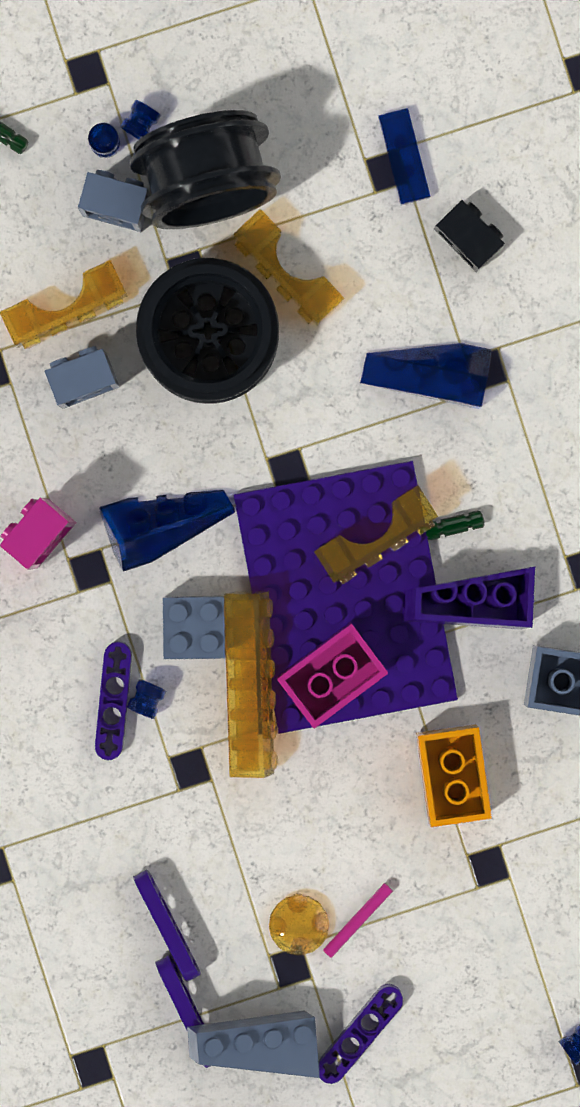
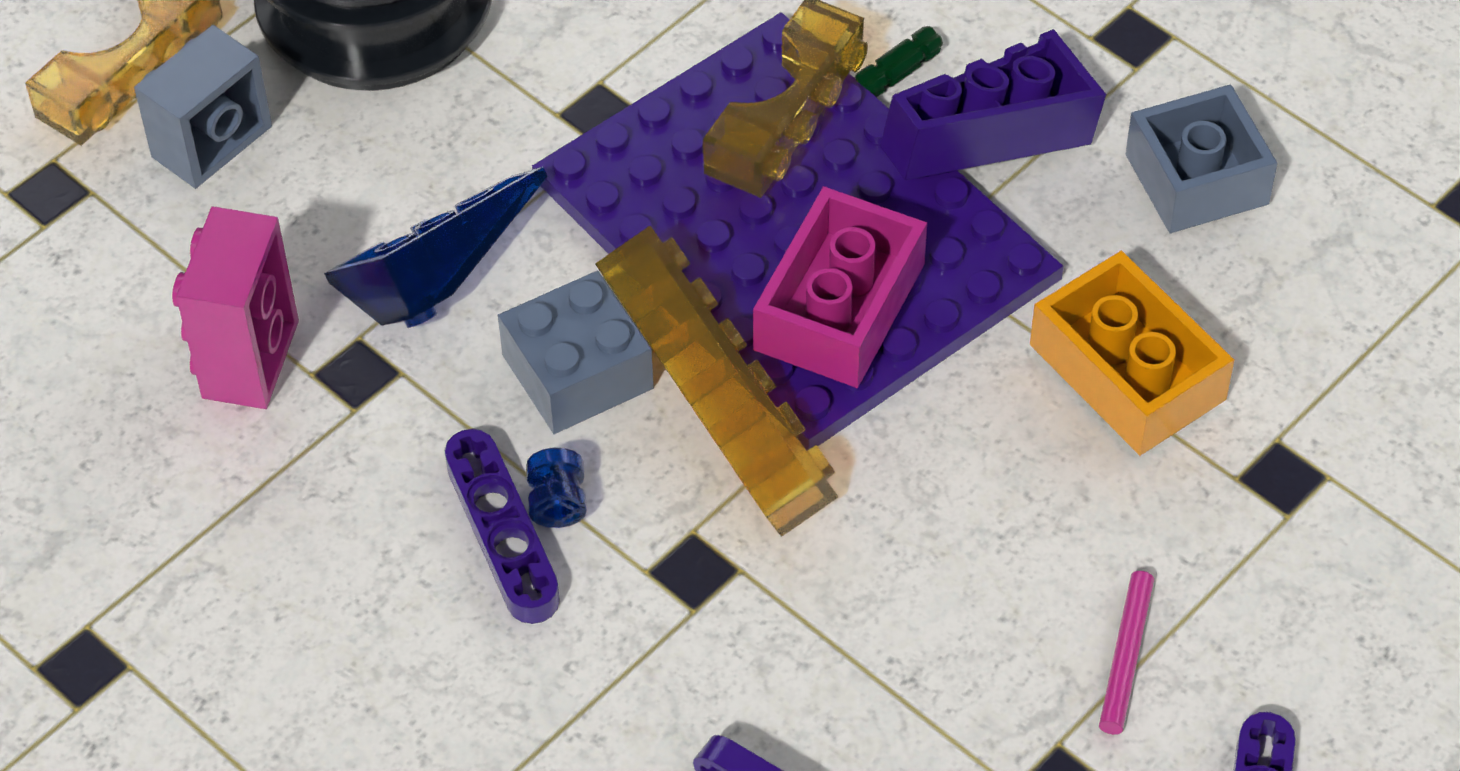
camera: 25 degrees left, 35 degrees down
(299, 924) = (1031, 706): clear yellow dish -> none

